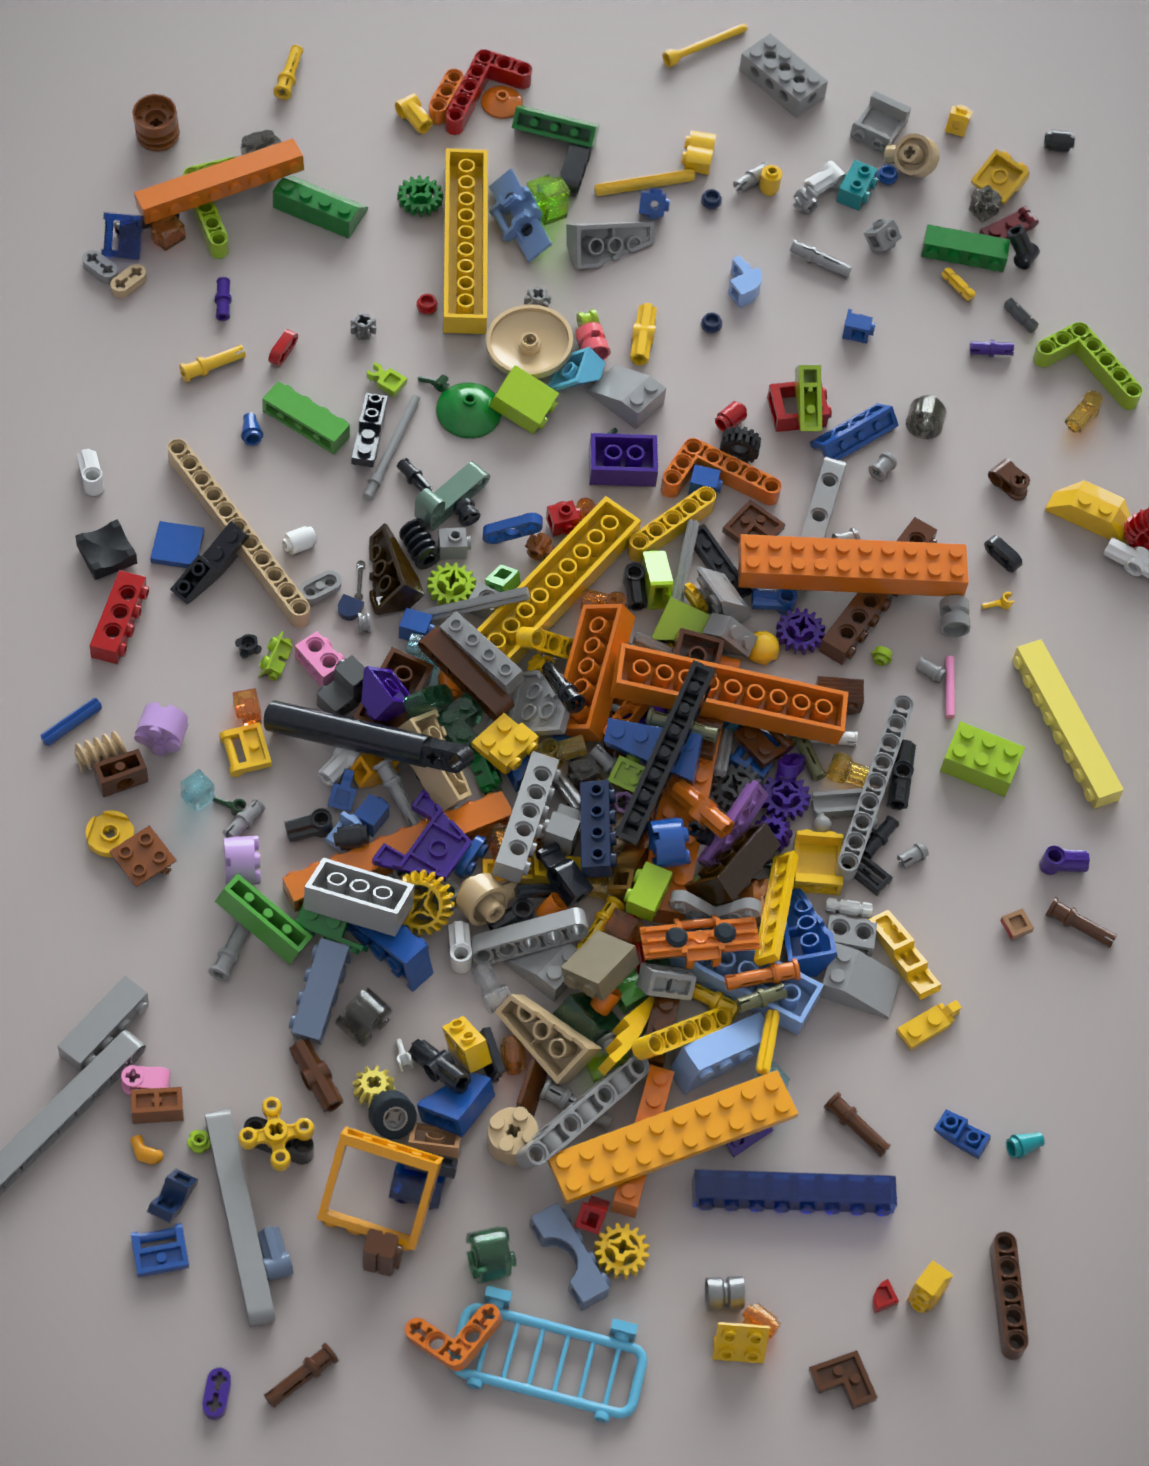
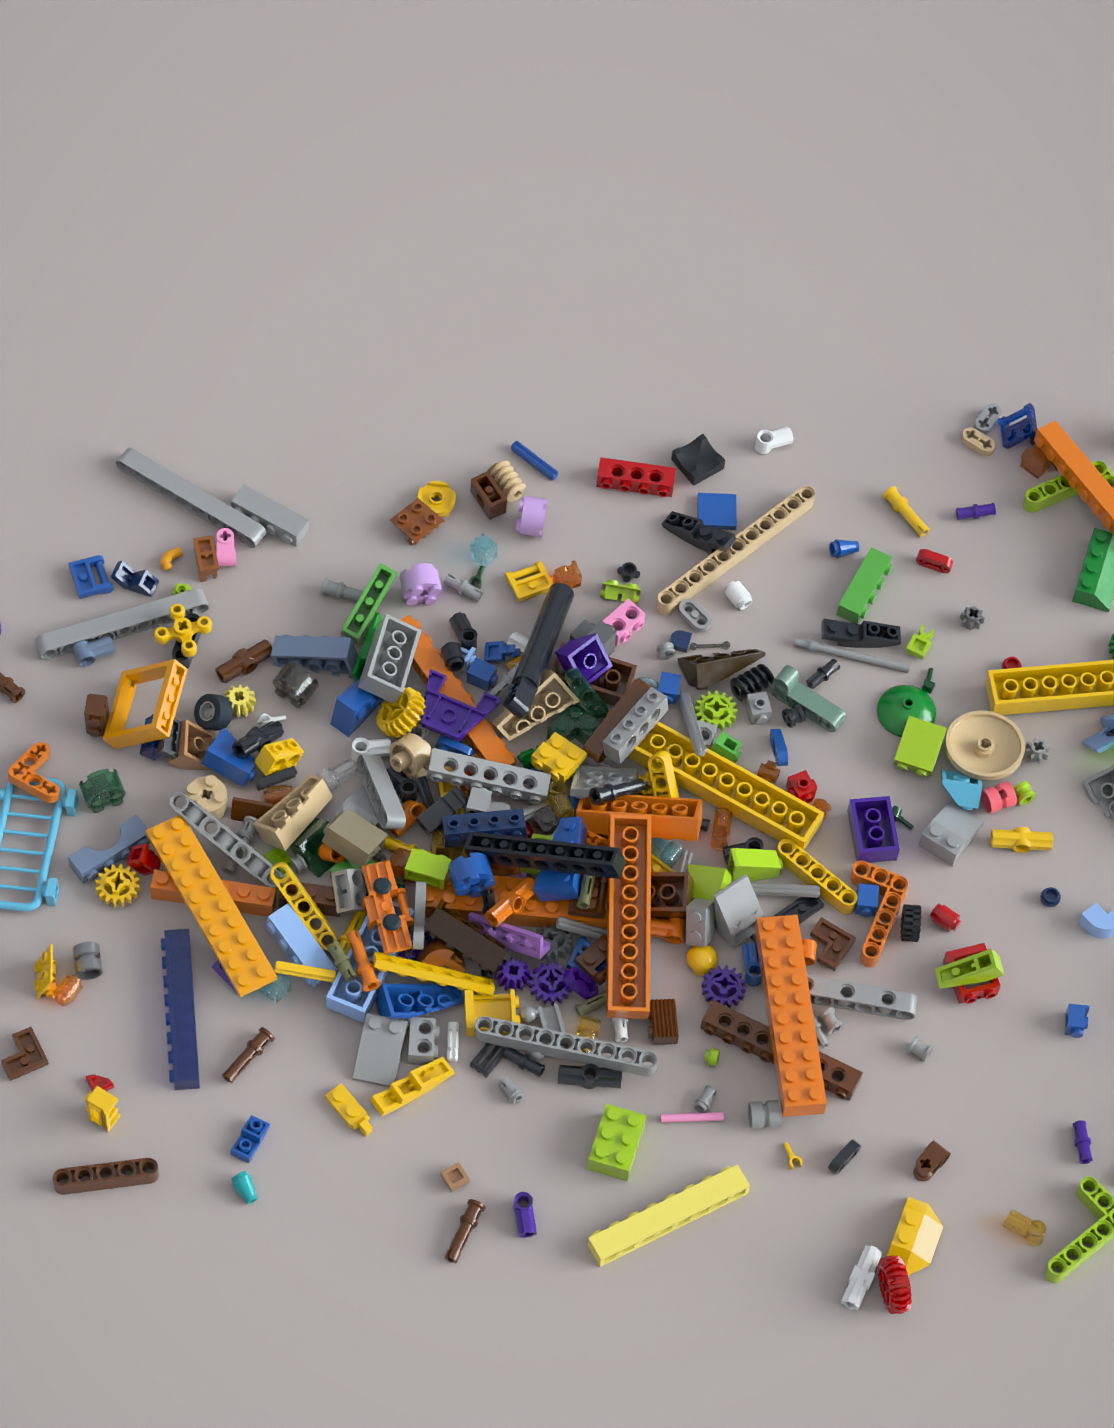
camera: 85 degrees right, 0 degrees up
(626, 1032) = (306, 872): yellow slope -> none
(856, 431) = (953, 1025): blue fence -> none
(926, 417) = (983, 1082): clear smoke piece -> none

